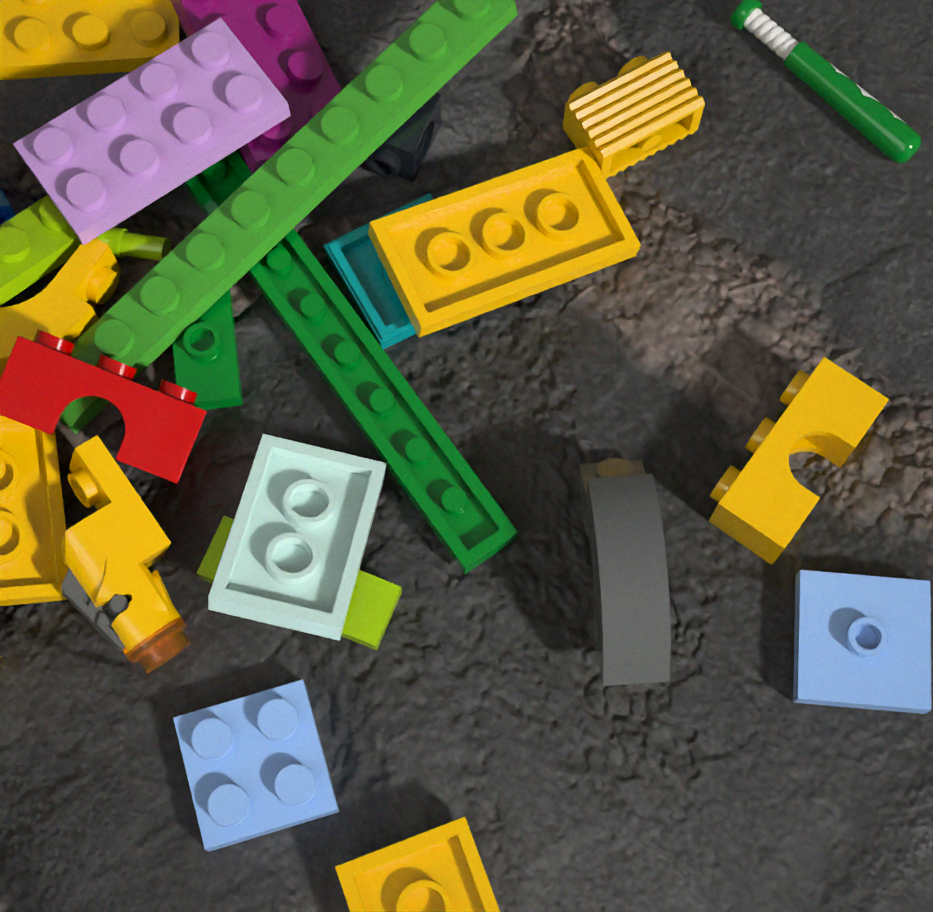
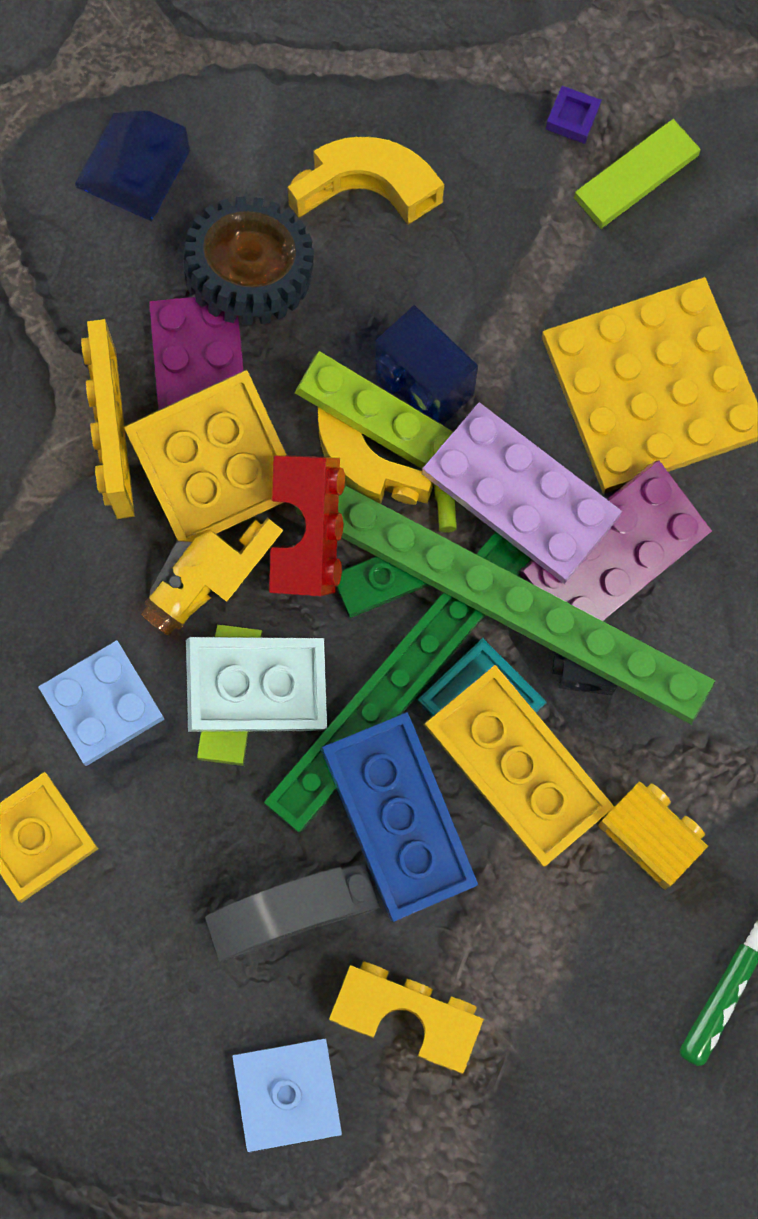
camera: 75 degrees right, 5 degrees up
(530, 398) = (399, 816): none -> blue plate

